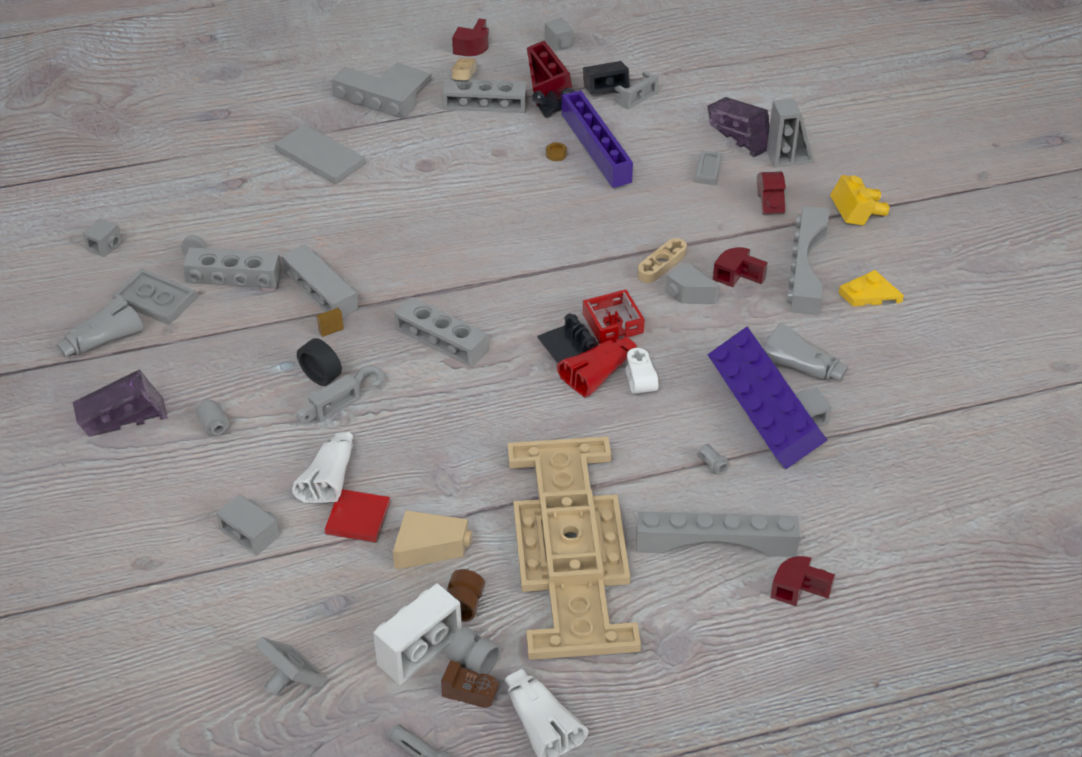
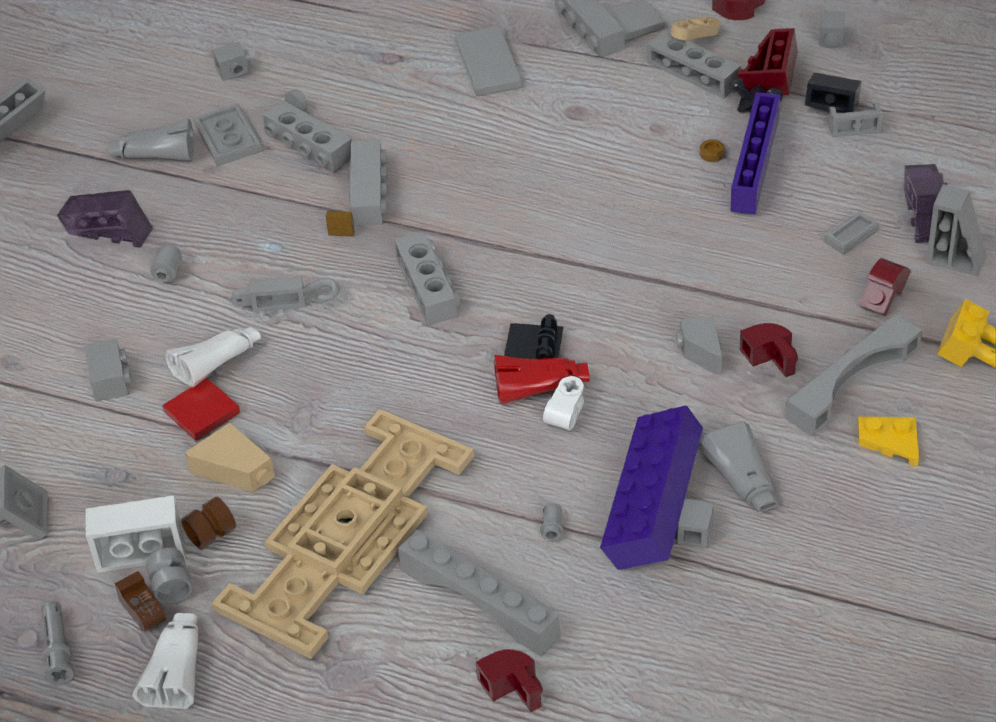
camera: 40 degrees right, 0 degrees up
(319, 361) = (290, 253): black tyre -> none
(609, 311) = (595, 332): red piece -> none
(651, 269) = (721, 296): tan beam -> none

